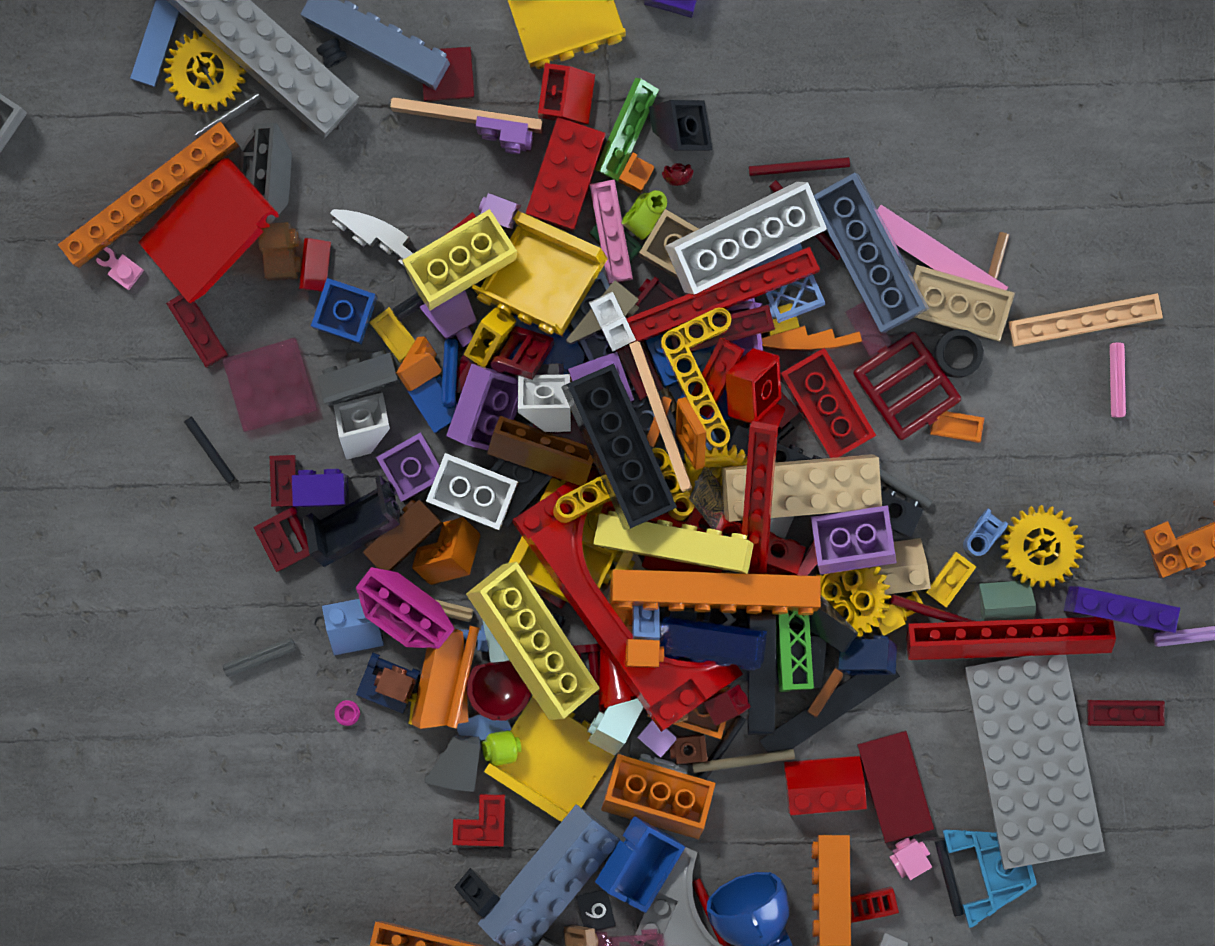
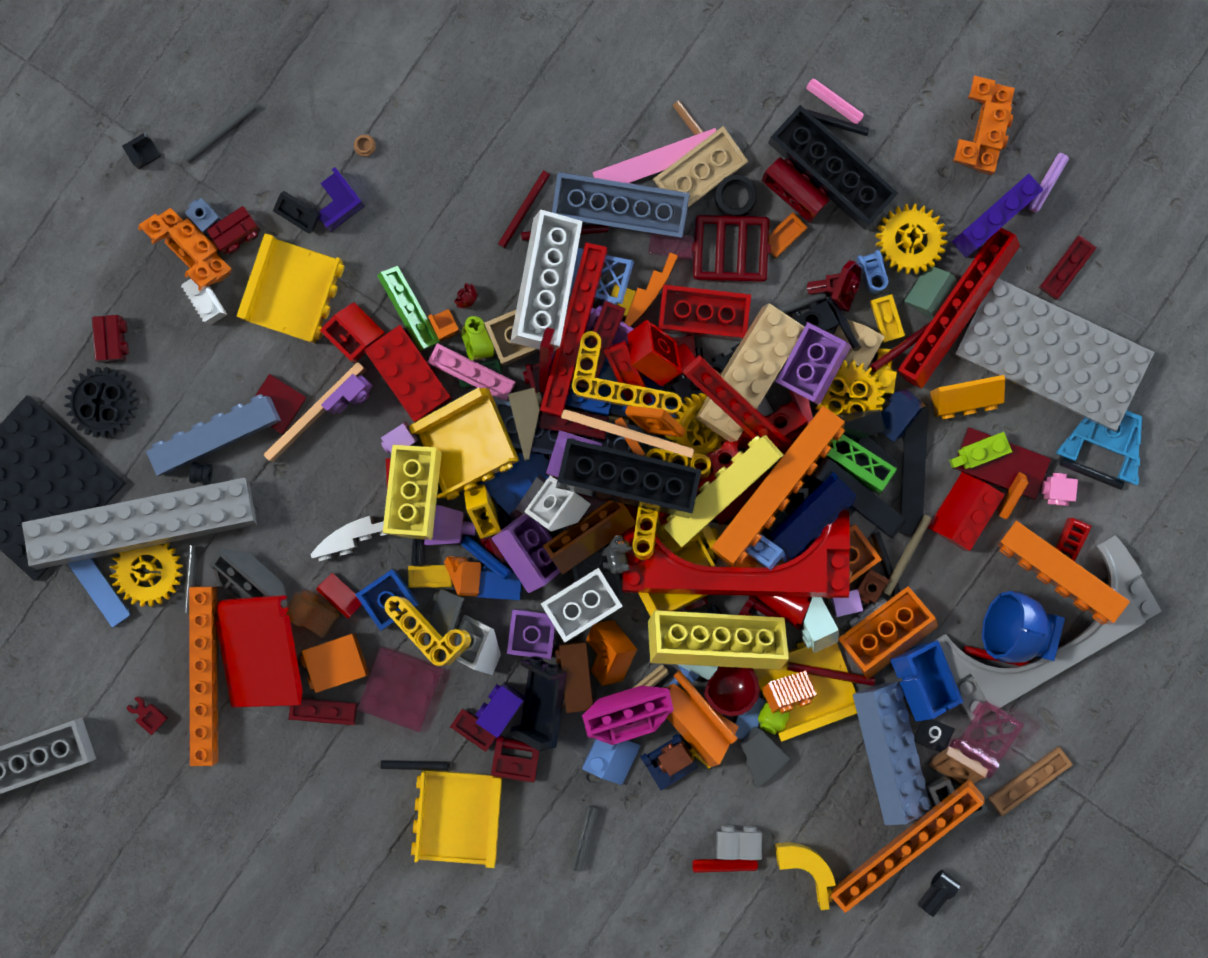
camera: 50 degrees left, 0 degrees up
(73, 175) = (149, 717): none -> dark red plate
(122, 269) = (243, 732): bright pink plate -> none
(191, 525) = (457, 817): none -> yellow panel
(249, 306) = (334, 663): none -> orange panel
(330, 805) = (721, 865): none -> red axle
(341, 362) = (423, 627): none -> yellow beam
(347, 713) = (669, 805): dark pink plate -> none
(360, 803) = (738, 844): none -> light grey brick
(393, 877) = (796, 855): none -> yellow arch
(476, 892) = (862, 809): black plate -> none
(487, 829) = (822, 768): red plate -> none
(529, 356) = (516, 494): dark red plate -> none
(534, 744) = (789, 692): none -> orange brick
(541, 490) = (616, 555): none -> dark grey animal
(580, 771) = (828, 673): none -> dark red bar
(612, 321) = (535, 417): white slope -> none
(644, 653) = (786, 569): orange brick -> none
(675, 289) = (546, 357): none -> dark red tile
(682, 124) = (434, 268): black slope -> none
(708, 497) = (709, 443): clear piece -> none
(727, 704) = (863, 537): dark red brick -> none
(825, 693) = (903, 463): dark orange tile -> none
(872, 818) = (1013, 495): none -> orange tile
(892, 759) = (982, 451): none -> lime hinge
(914, 541) = (844, 325): none -> black bar
(933, 708) = (968, 397): none -> light orange slope
(947, 513) = (840, 286): none -> dark red piece
(1007, 403) = (795, 189): none -> dark red slope
(1052, 423) = (832, 167): none -> black brick
(1085, 320) = (777, 92): light nougat tile -> none
(1099, 396) = (839, 123): none -> black bar

